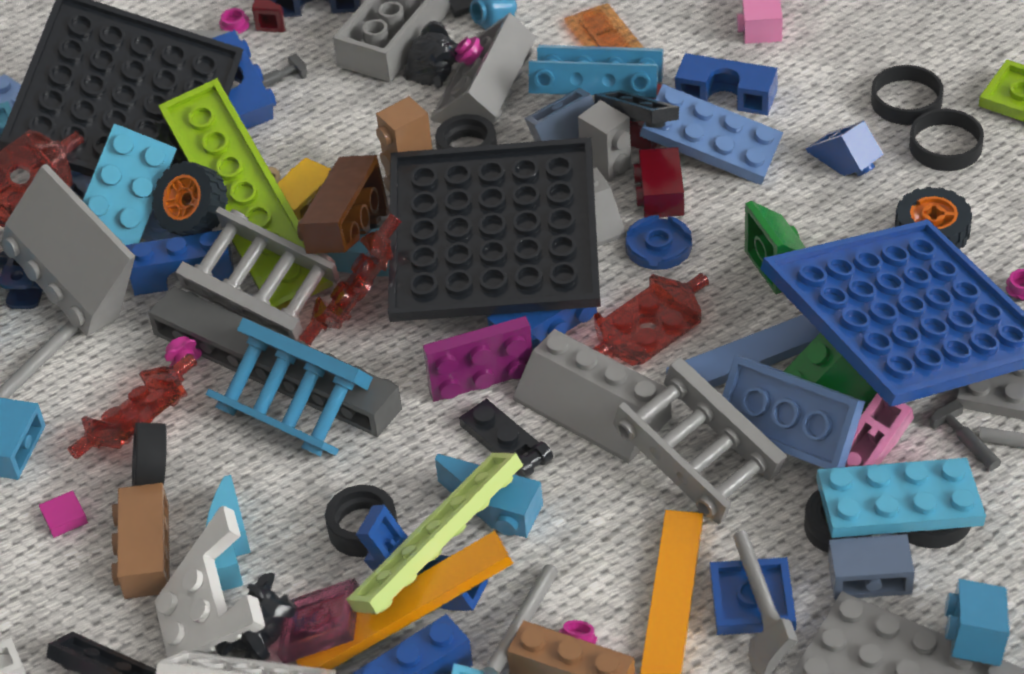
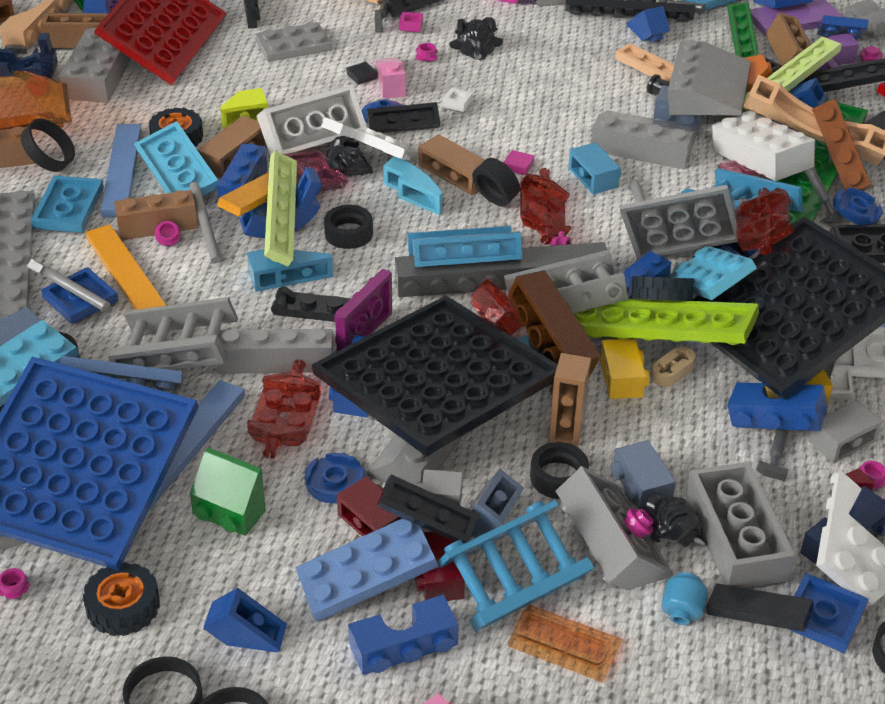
camera: 135 degrees right, 5 degrees down
(414, 83) = (642, 473): none -> sand blue brick

